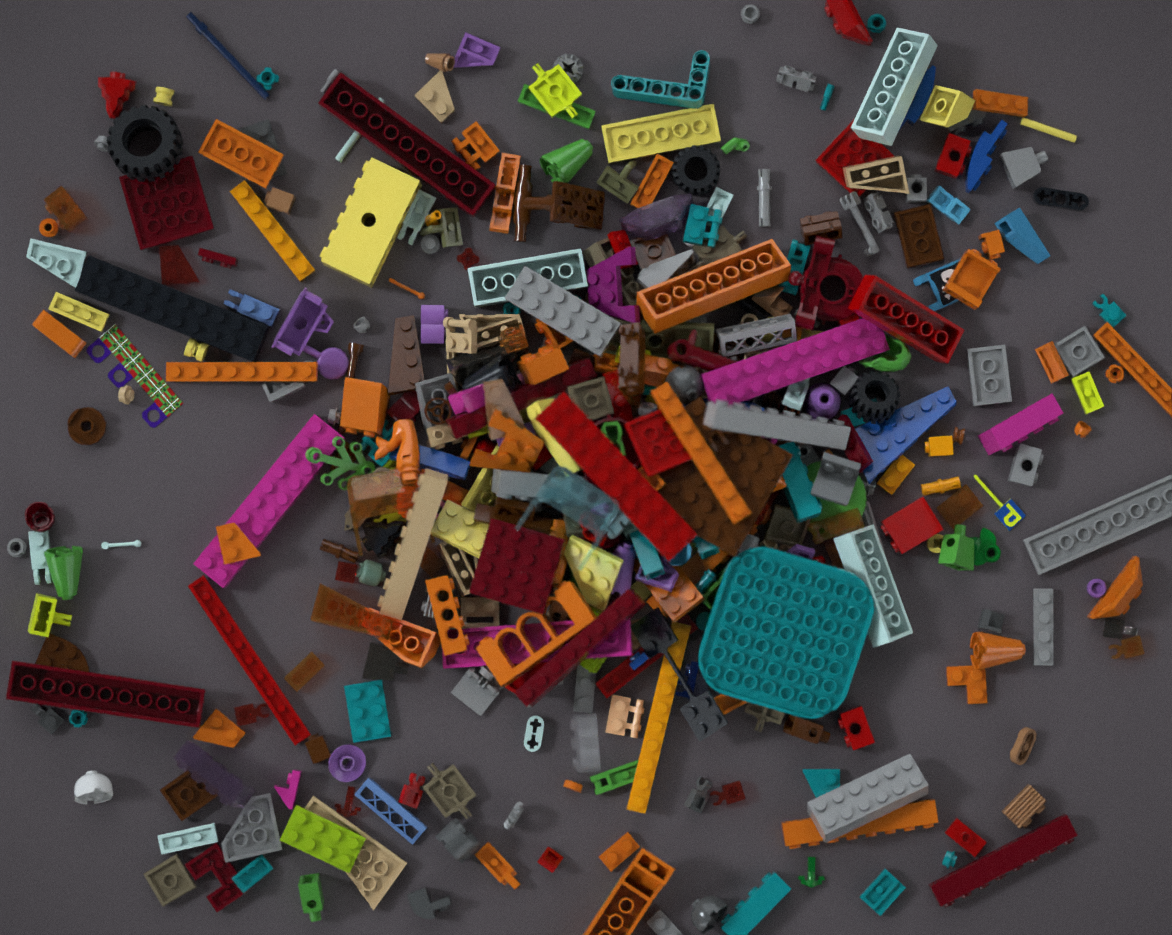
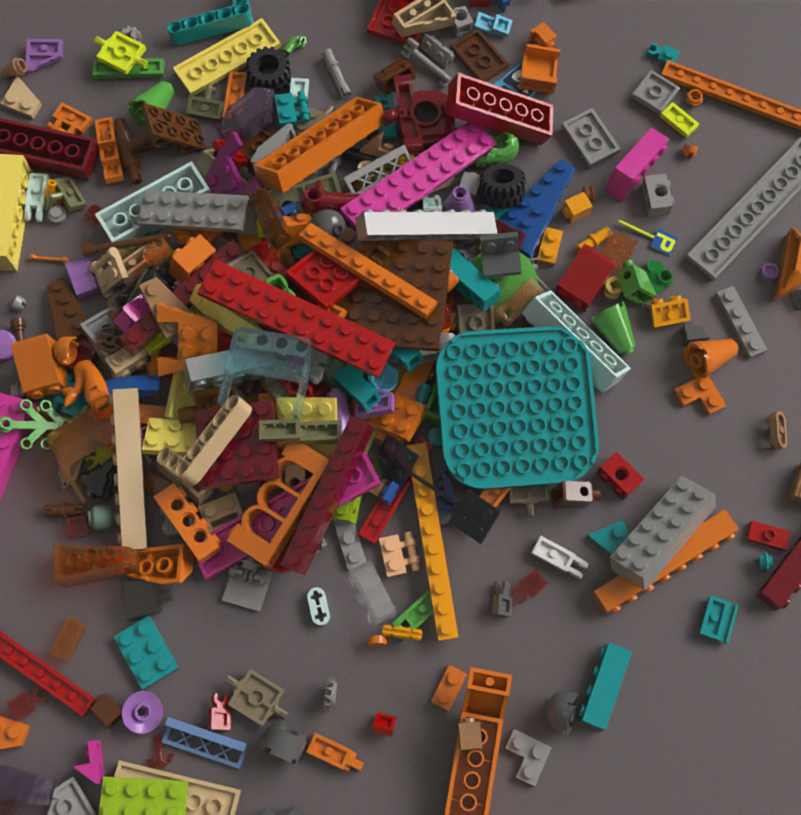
camera: 20 degrees left, 15 degrees down
(393, 402) = (66, 350): none -> orange hair
(451, 304) = (90, 250): none -> reddish brown piece
(491, 562) = (209, 444): none -> tan beam
(578, 581) = (300, 432): none -> olive slope
(597, 788) = (402, 632): none -> light orange axle
(618, 901) = (469, 734): none -> medium nougat brick
(657, 346) = (291, 208): none -> blue plate
(765, 777) = (558, 556): none -> white hinge
(811, 882) = (646, 638): green piece -> none
(918, 586) = (616, 328): none -> bright green cone
(978, 588) = (669, 311): none -> light orange bracket
(1020, 234) = (566, 22): dark azure slope -> none
(1051, 362) = (638, 107): orange plate -> none

